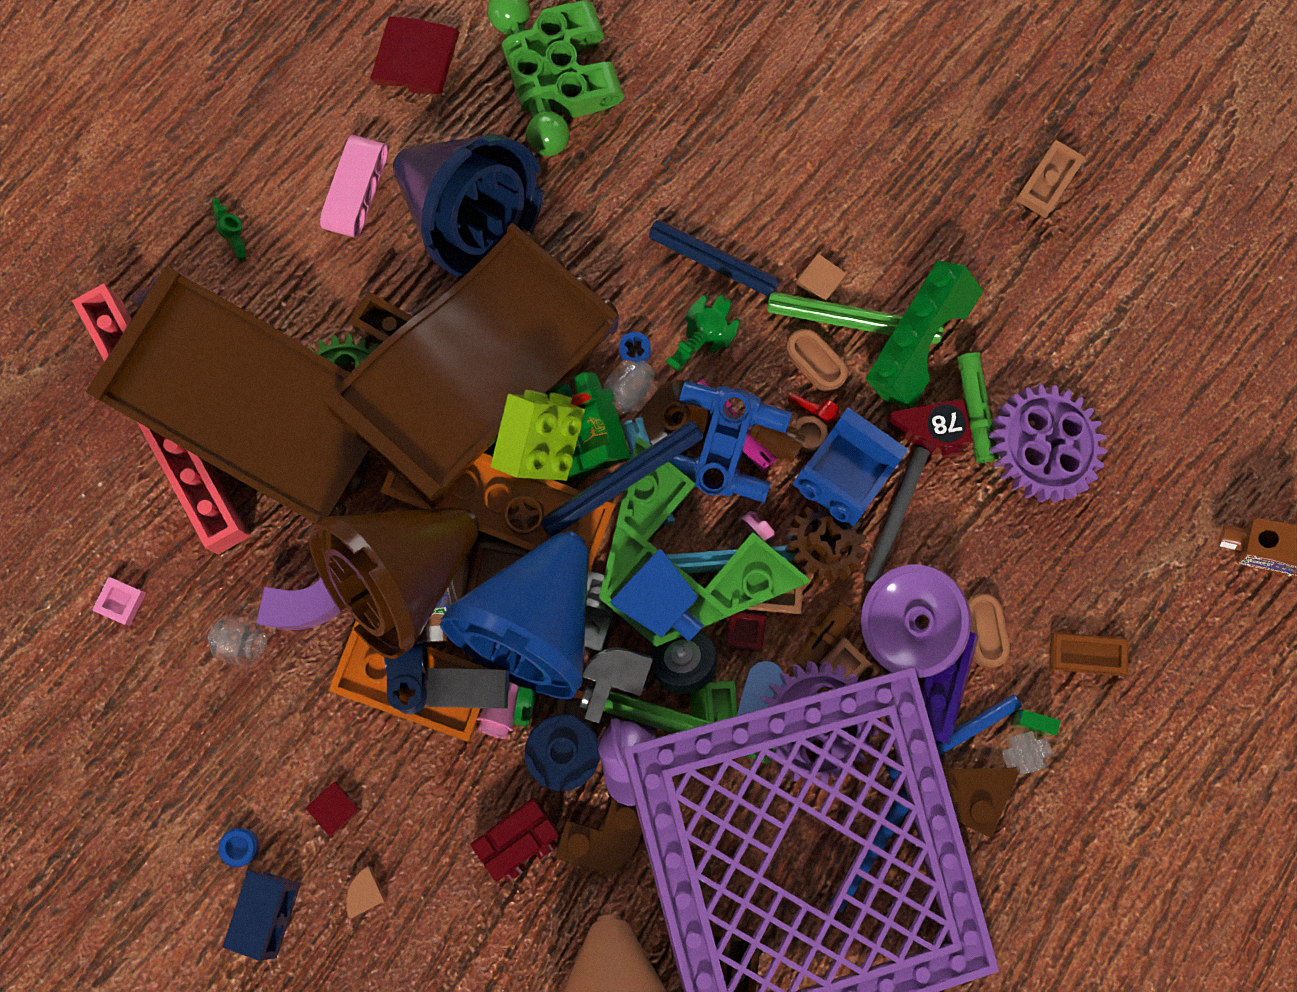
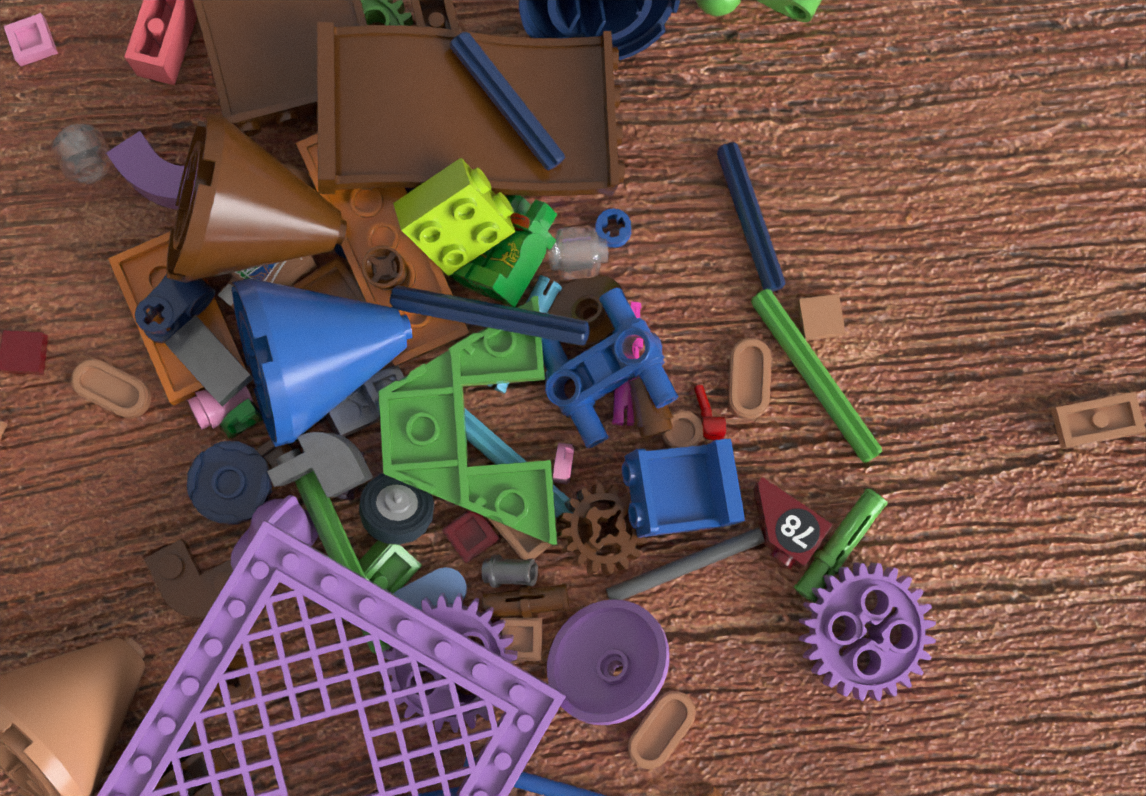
camera: 40 degrees right, 0 degrees up
(416, 773) = (111, 388): none -> nougat tile
(493, 330) = (507, 100): none -> dark blue axle
(515, 840) = (128, 514): dark red brick -> none
(659, 599) = (420, 437): blue torso -> none
(710, 326) = (691, 267): green piece -> none
(795, 628) = (509, 571): none -> flat silver pin
(902, 365) = (809, 449): green arch -> none
(945, 691) = (575, 742): dark purple plate -> none

